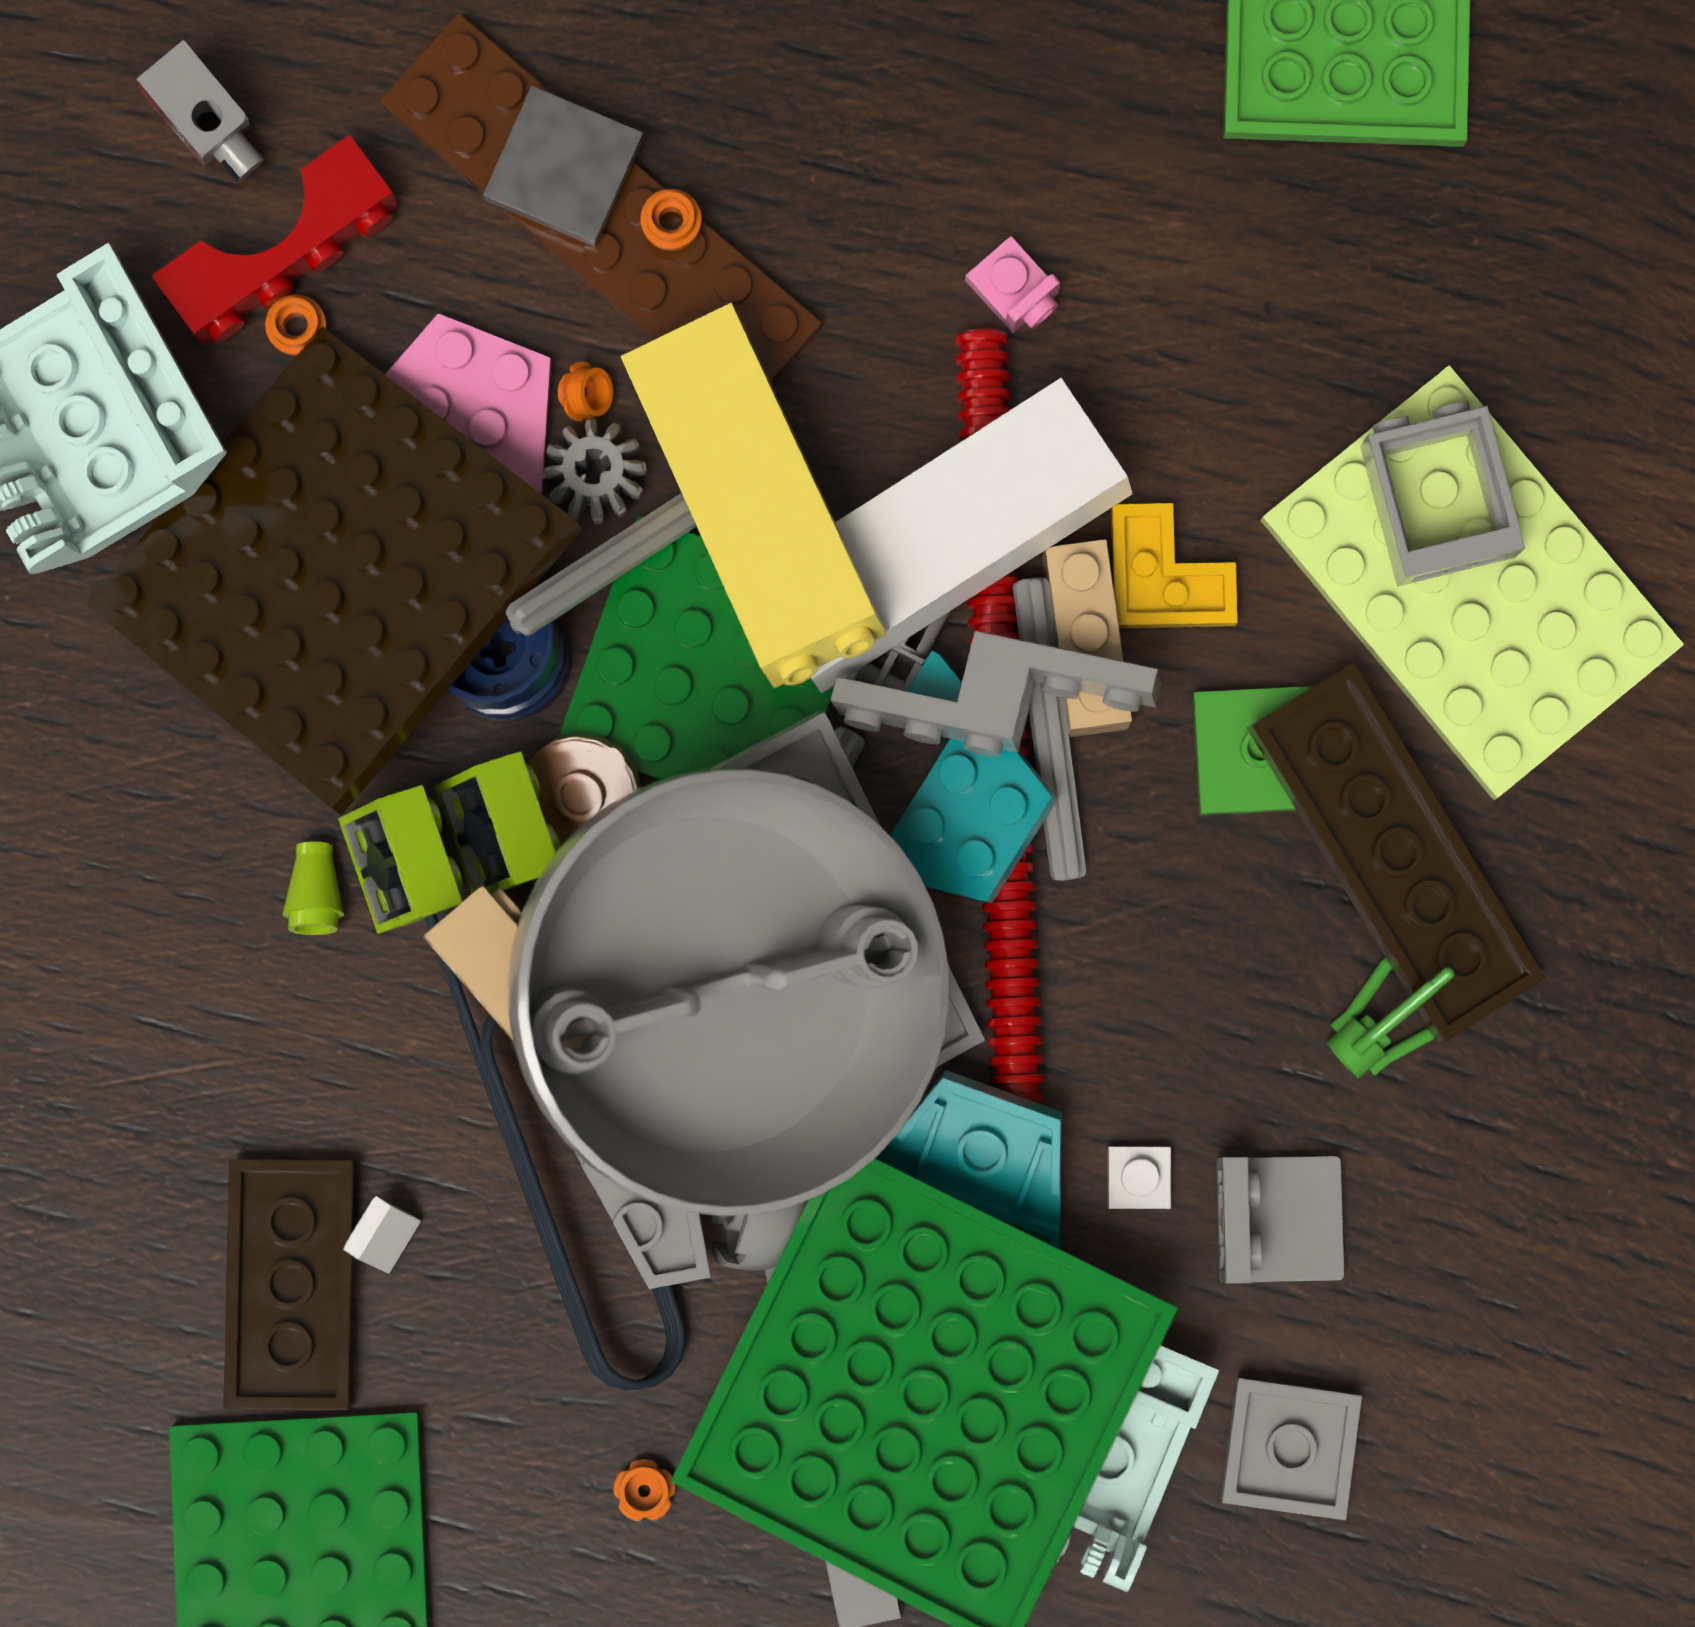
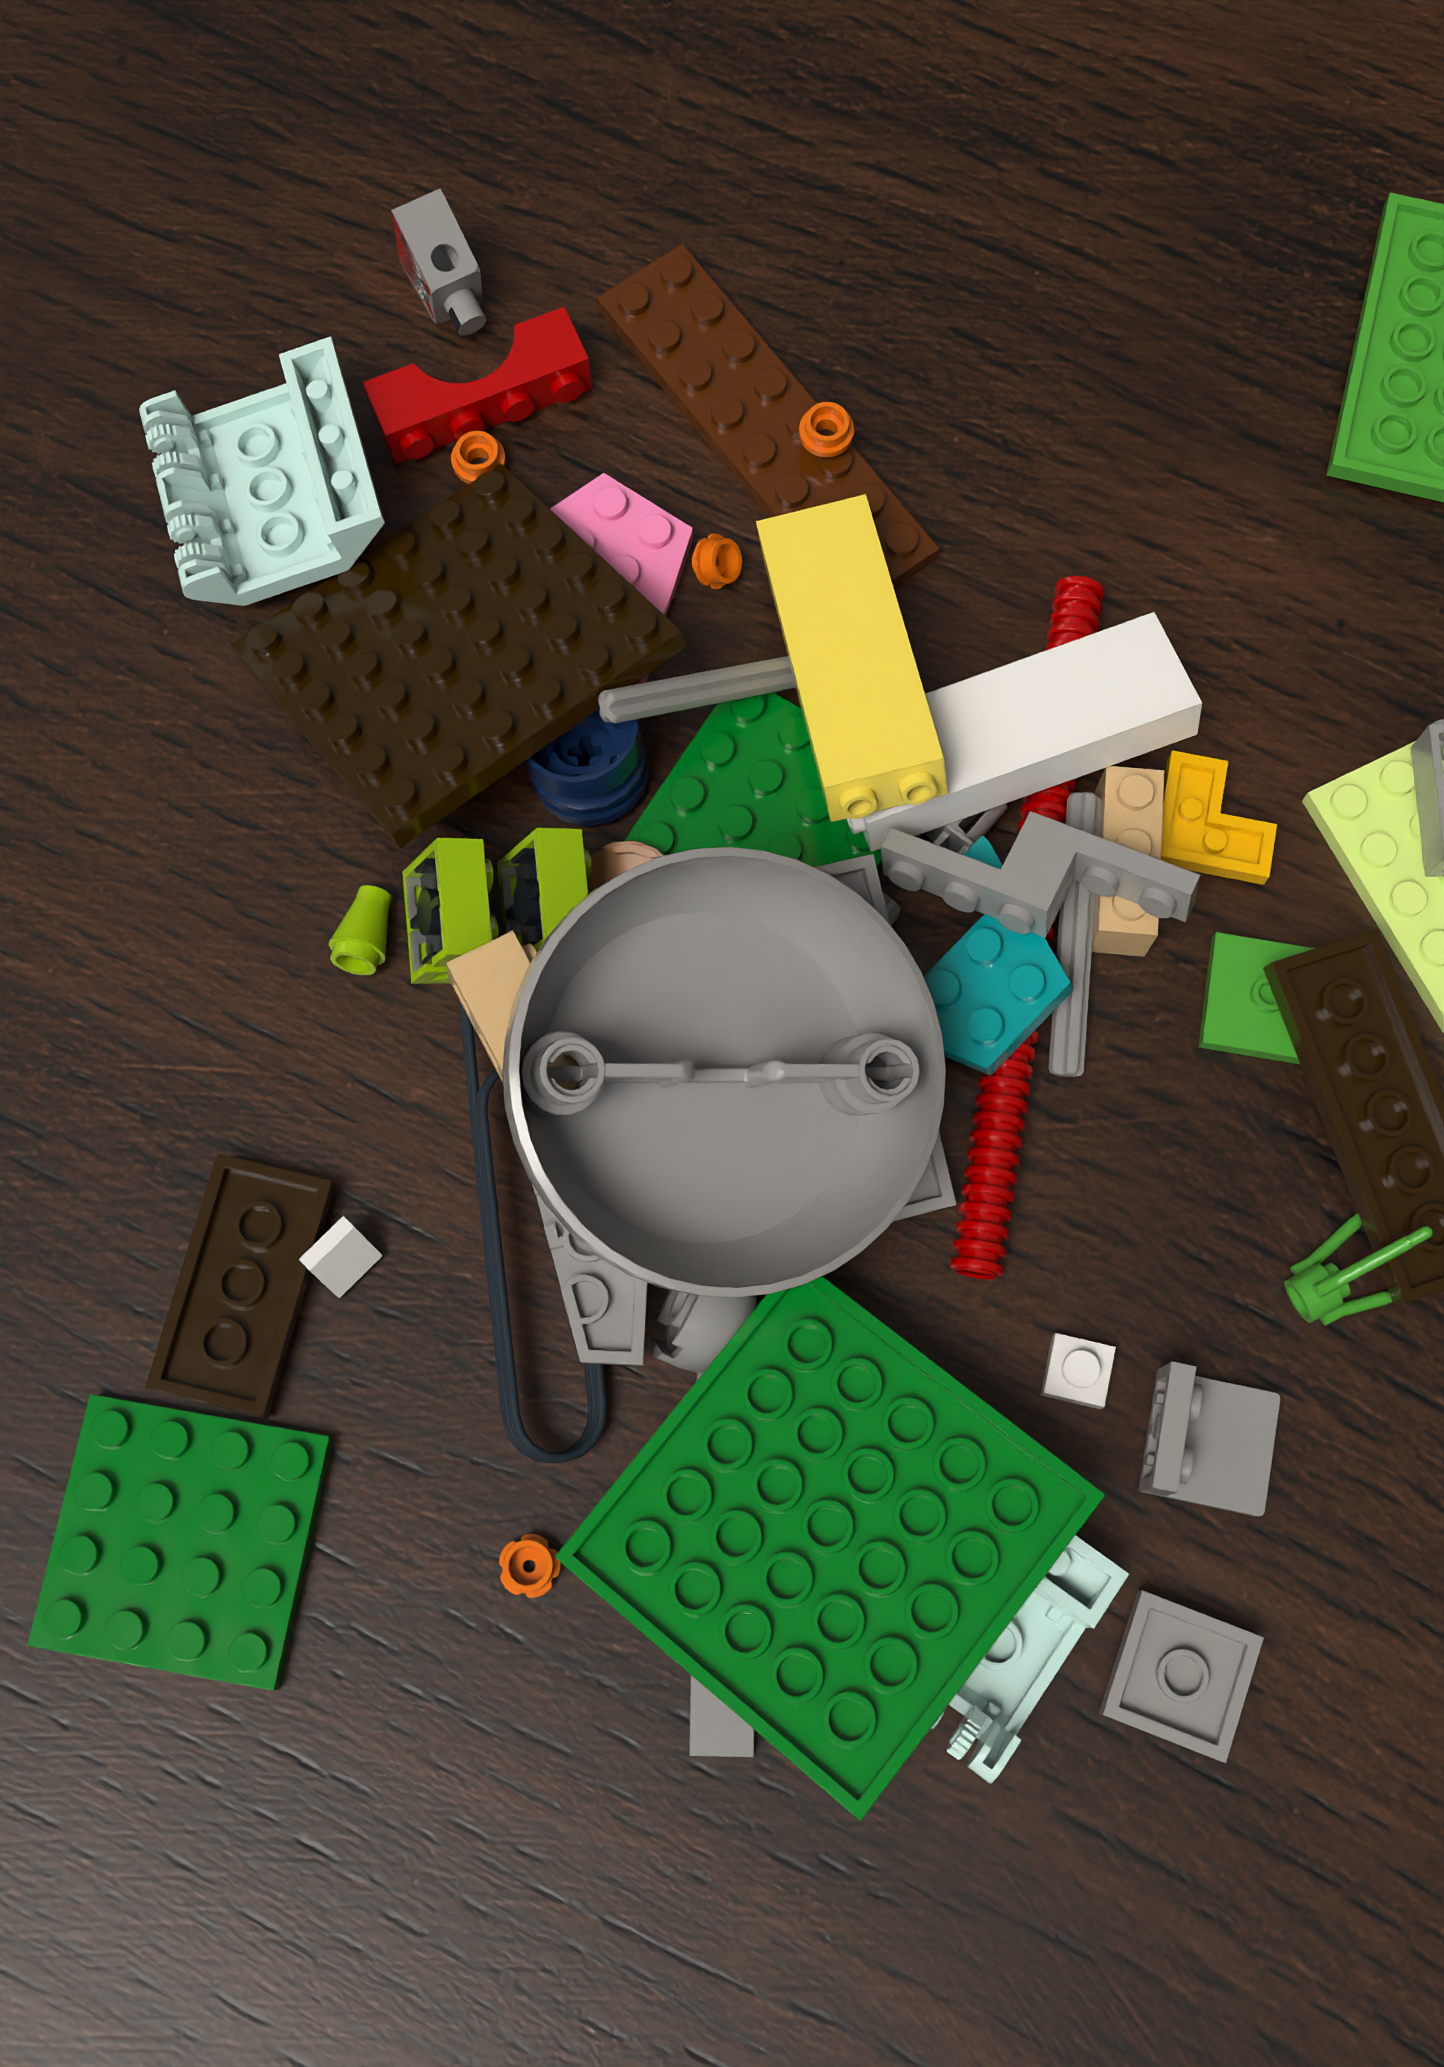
camera: 15 degrees right, 10 degrees down
(563, 166) = (742, 371): flat silver tile -> none
(577, 459) = (729, 623): light grey gear -> none
(986, 1152) = (939, 1302): teal wing -> none
(1014, 286) = (1117, 556): bright pink bracket -> none

